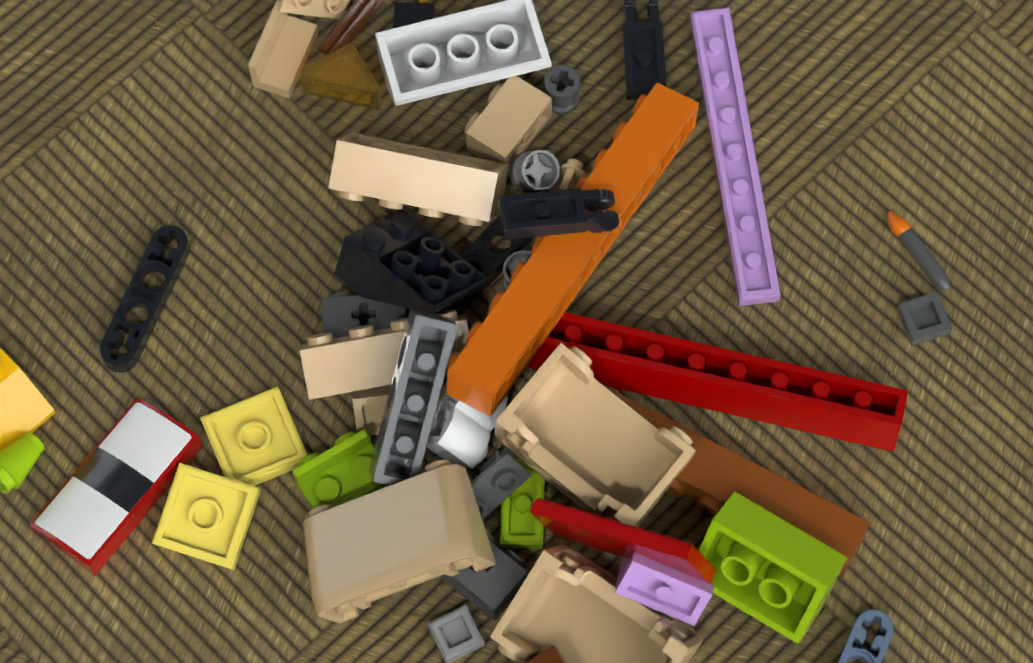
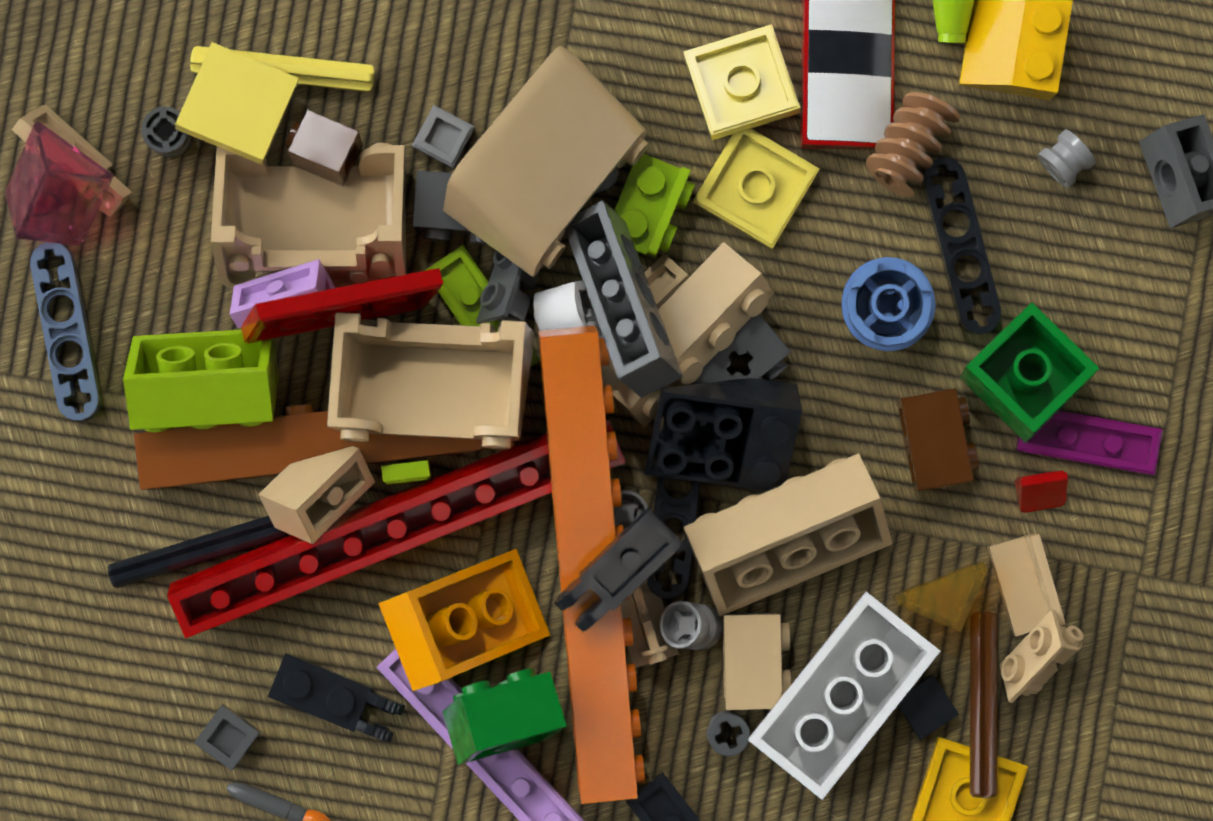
camera: 140 degrees right, 20 degrees up
(23, 302) = (1066, 158): none -> light grey wheel
(121, 385) = (908, 140): none -> medium nougat piece
(165, 117) = (1096, 442): none -> magenta tile
(168, 175) = (1028, 372): none -> green brick
(222, 106) = (1041, 491): none -> red slope
(227, 282) = (888, 304): none -> medium blue cone
(267, 180) = (937, 439): none -> reddish brown brick
(662, 404) = (407, 472): none -> lime tile
(694, 279) = (464, 620): none -> light orange slope
(712, 187) = (503, 717): none -> green brick
(740, 427) = (316, 492): none -> tan slope
(827, 298) = (330, 696): none -> black hinge
(856, 462) = (193, 551): none -> black axle

